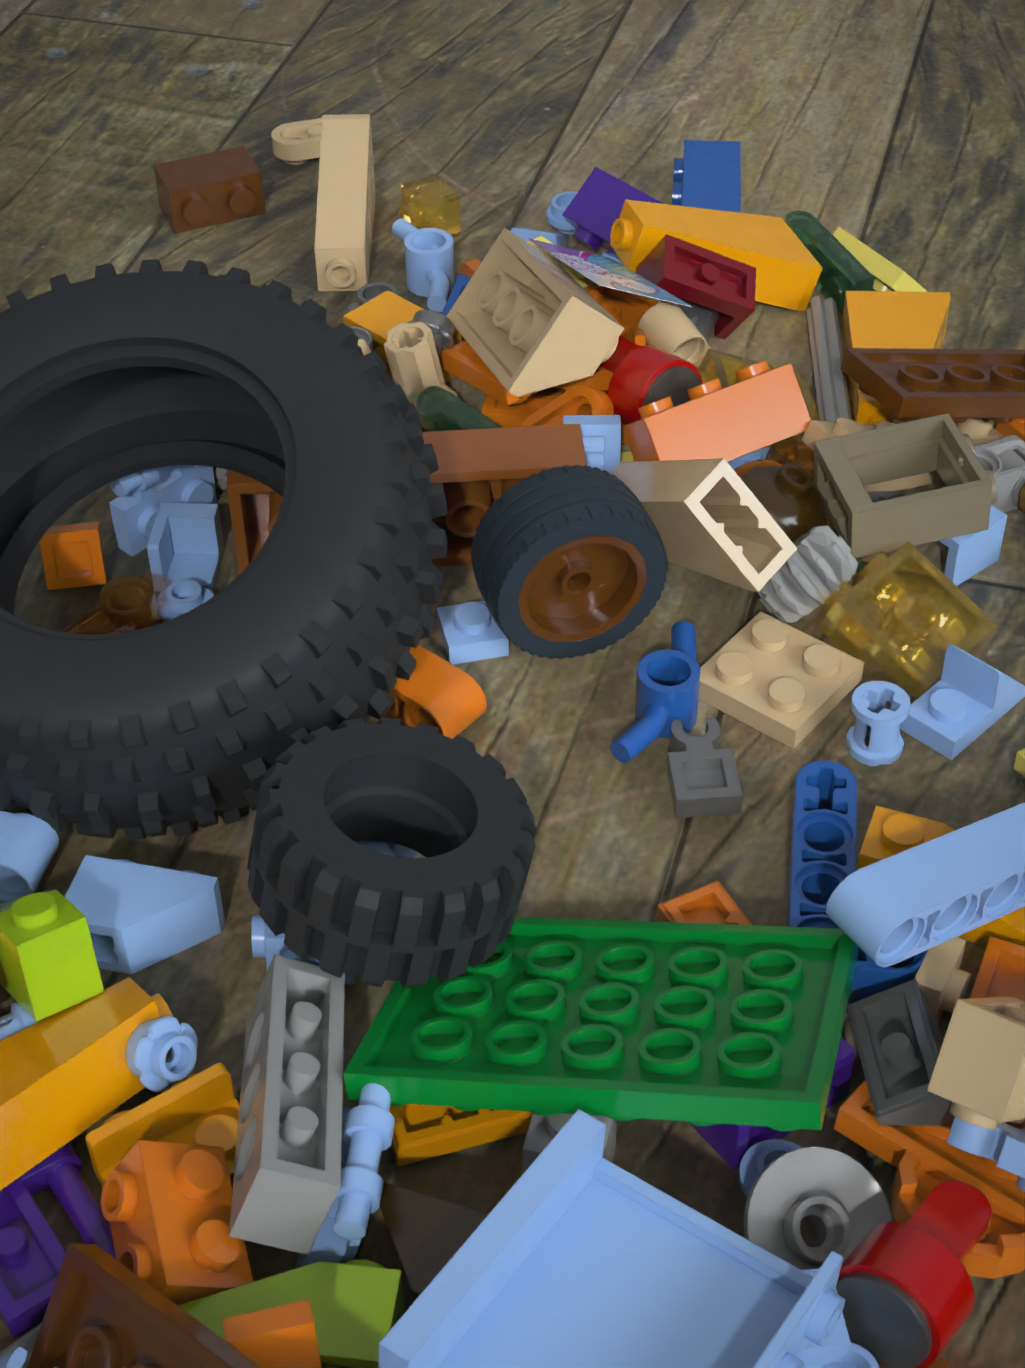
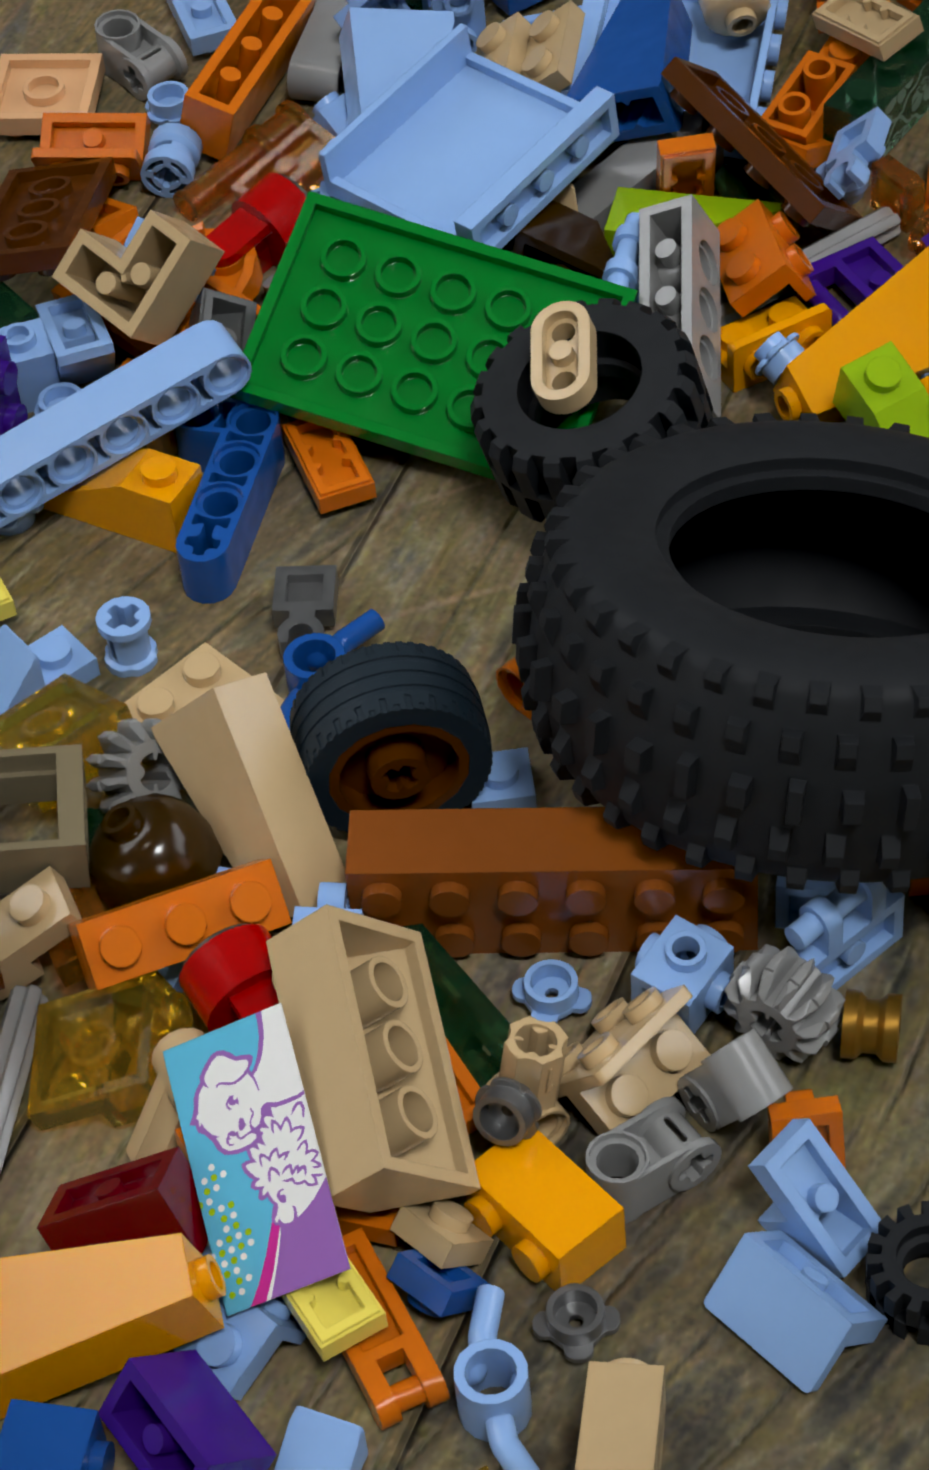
camera: 170 degrees left, 5 degrees up
(418, 795) = (563, 369): none -> tan plate

